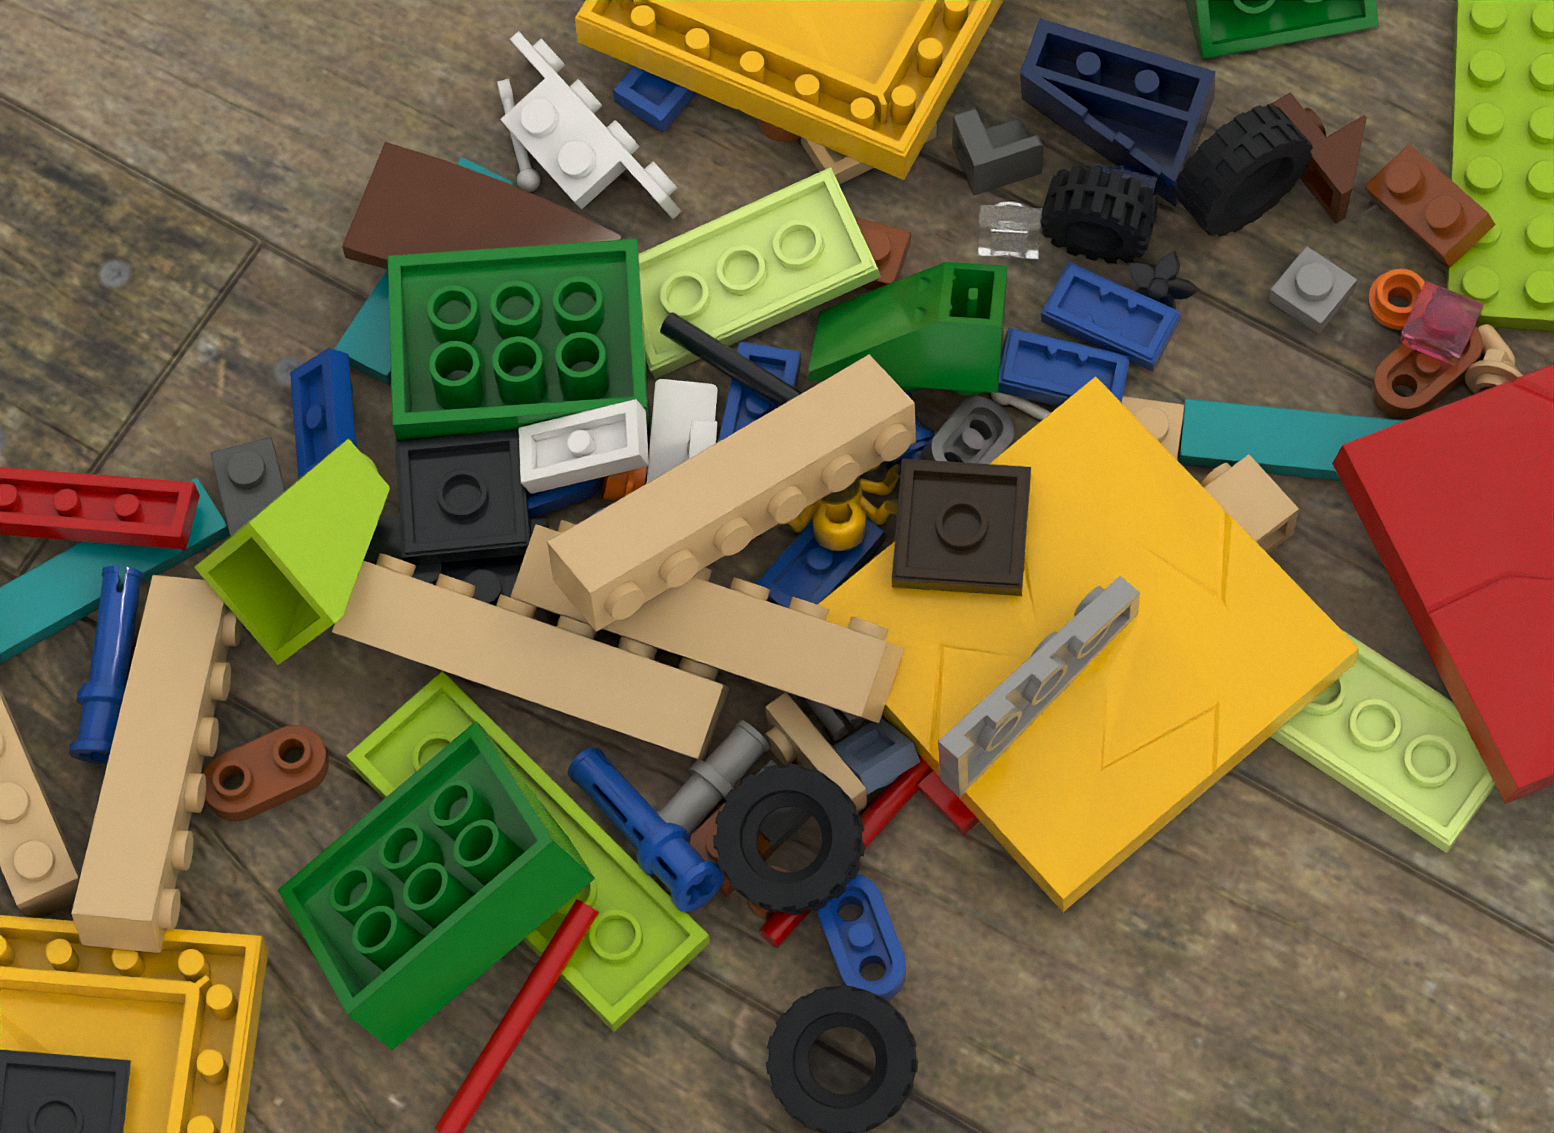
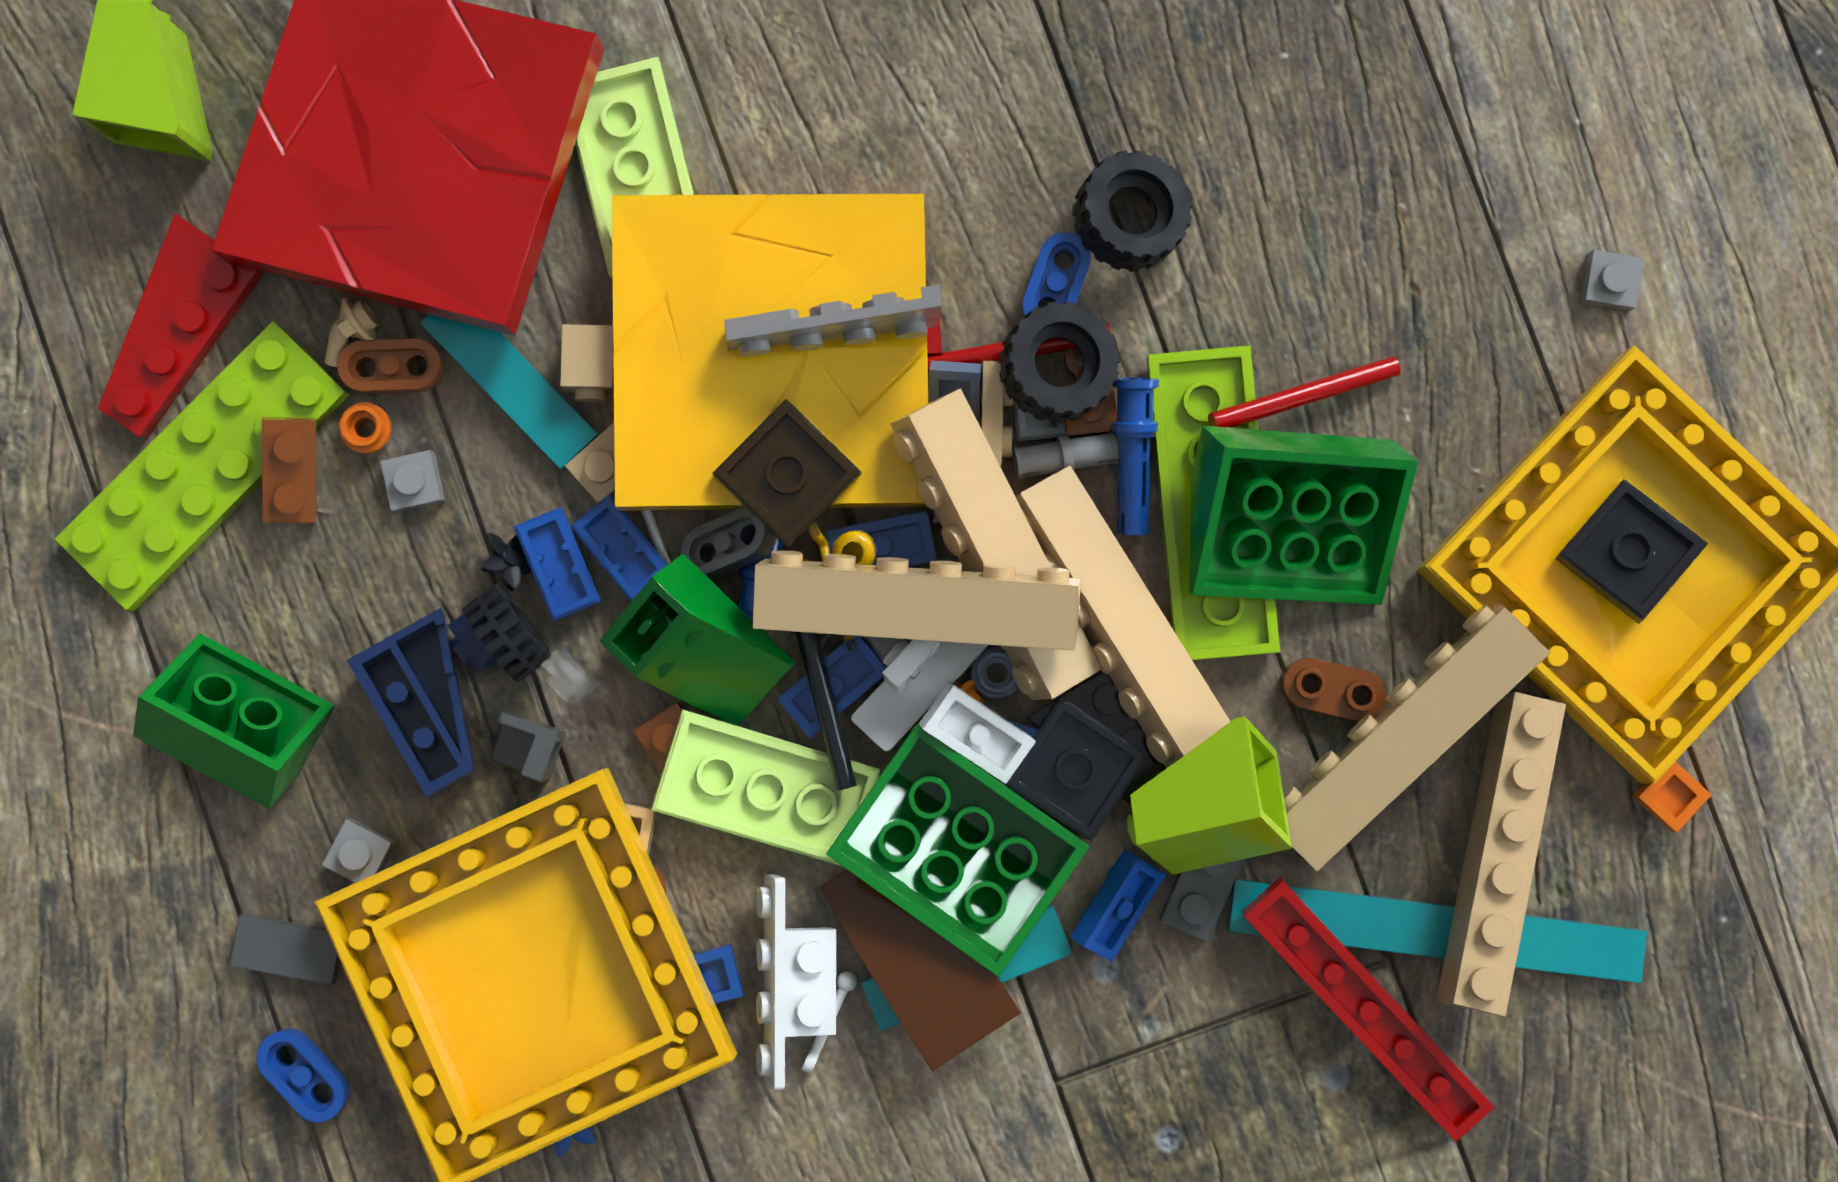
camera: 145 degrees left, 20 degrees up
(110, 666) = (1398, 819): blue pin -> none
(1243, 170) = (388, 581): black tyre -> none
(1333, 160) = (329, 550): reddish brown slope -> none
(1441, 323) = (358, 378): clear pink plate -> none

